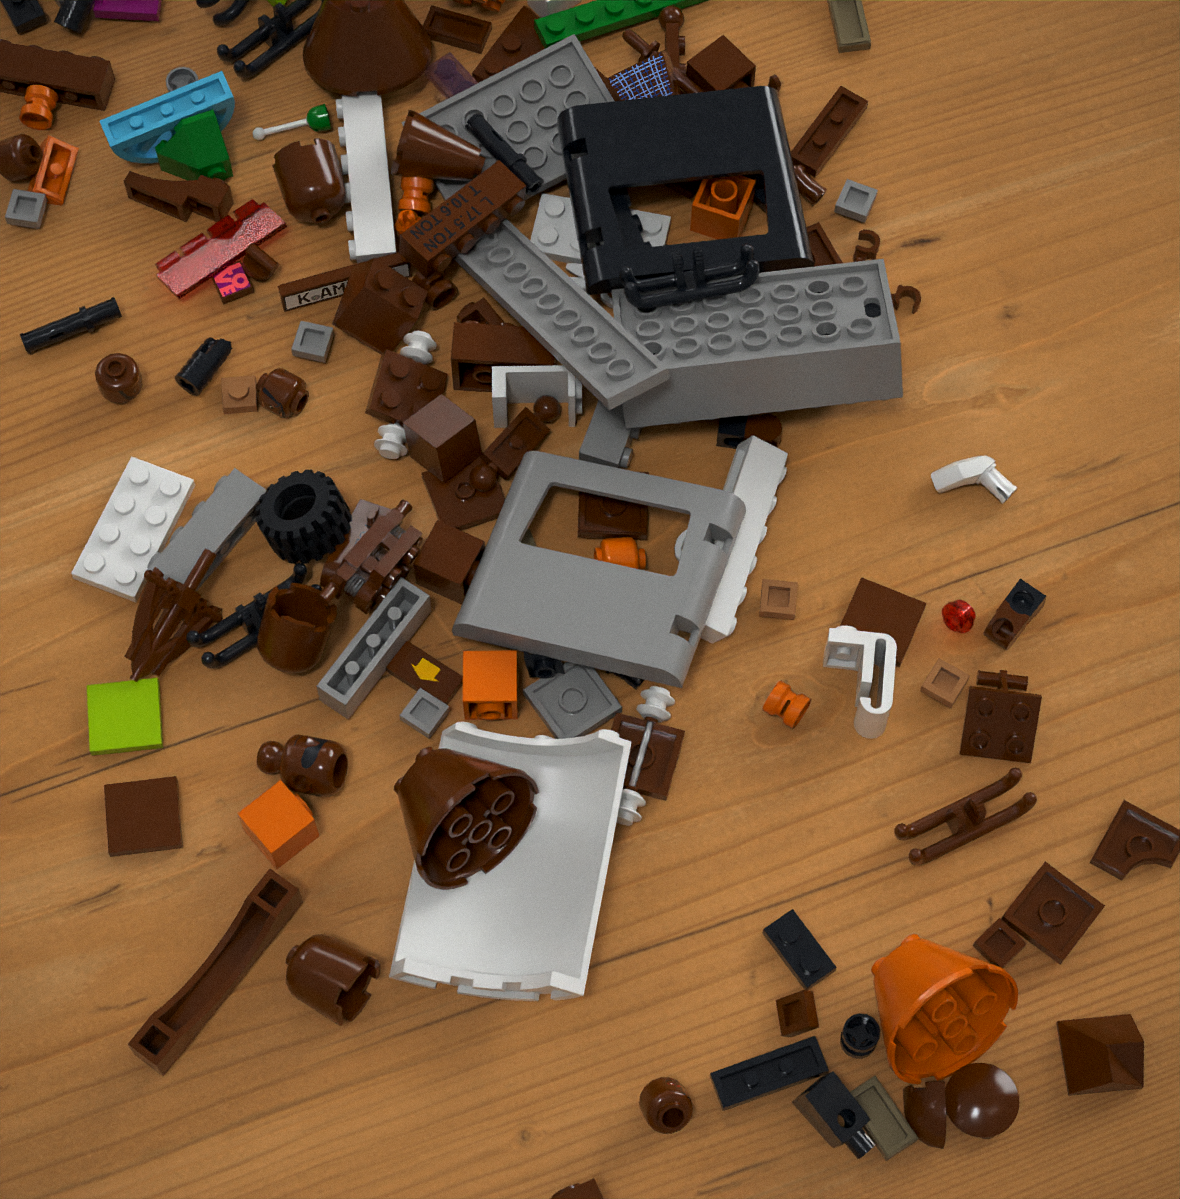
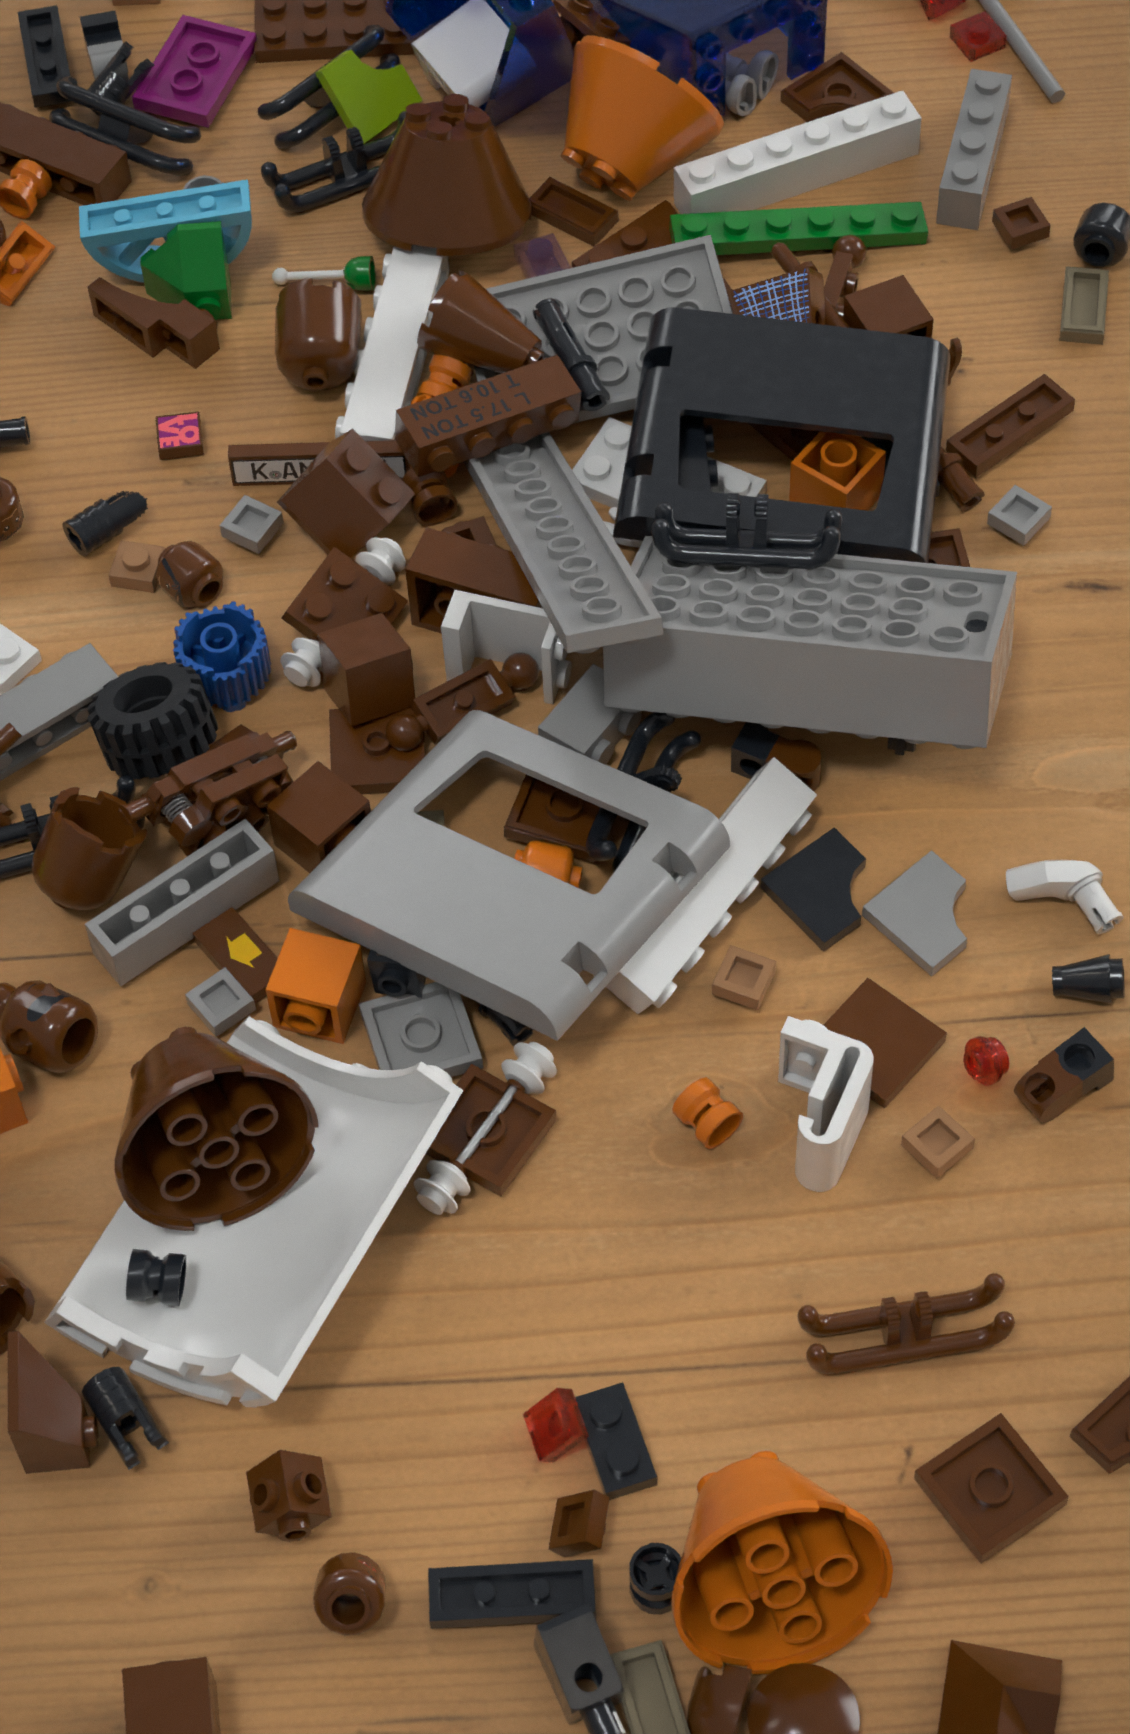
camera: 20 degrees right, 10 degrees down
(96, 39) = (125, 128): none -> black piece
(228, 243) = (192, 388): clear red windscreen -> none
(258, 263) = (219, 419): reddish brown plate -> none
(333, 448) = (226, 652): none -> blue brick
(419, 1041) = (45, 1413): none -> reddish brown slope
(453, 925) = (154, 1277): none -> black wheel
(464, 1022) = (121, 1412): none -> black hinge
(602, 1051) = (288, 1495): none -> reddish brown brick
(670, 470) = (661, 776): none -> black piece
(759, 951) = (555, 1425): none -> clear red plate
(804, 519) = (817, 886): none -> black tile
(862, 254) = (1045, 639): reddish brown piece -> none
(879, 519) = (919, 913): none -> light grey tile
(999, 720) = (998, 1206): reddish brown plate -> none
(999, 944) = (899, 1509): reddish brown plate -> none
(1010, 539) = (1090, 979): none -> black cone

